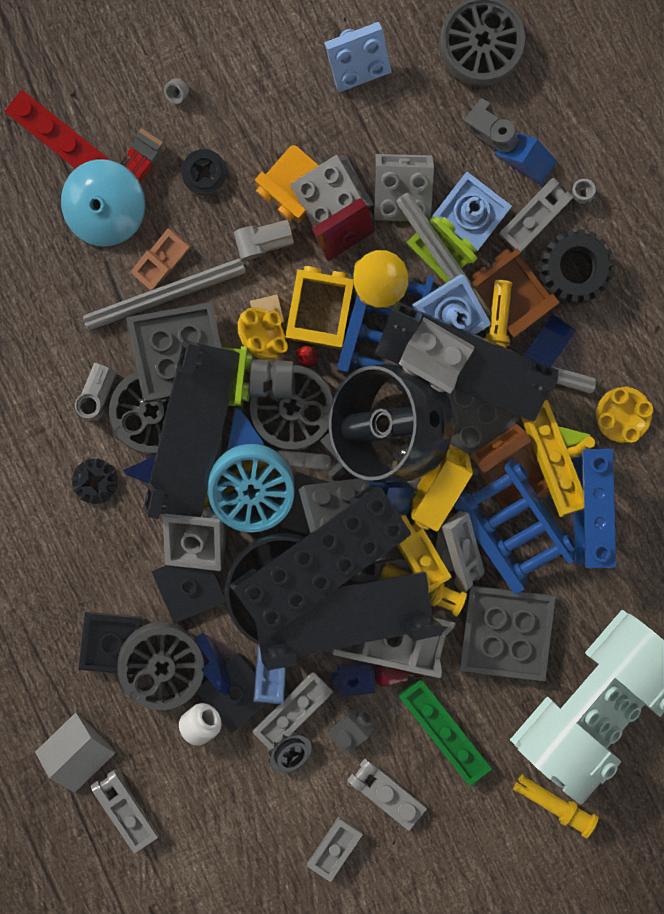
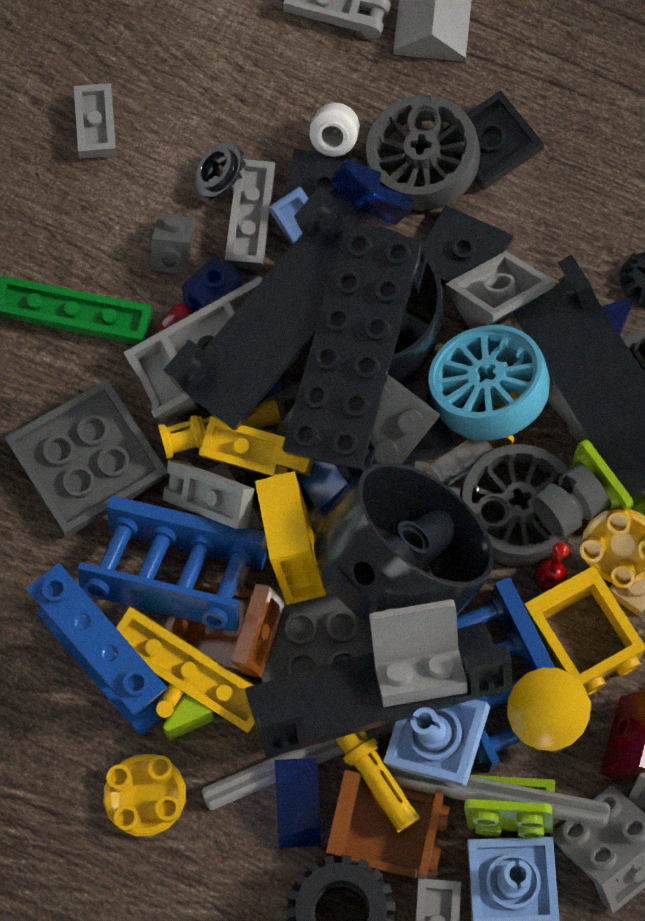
camera: 135 degrees right, 20 degrees down
(242, 431) = (548, 434): blue slope -> none
(388, 794) = (83, 211): light grey plate -> none

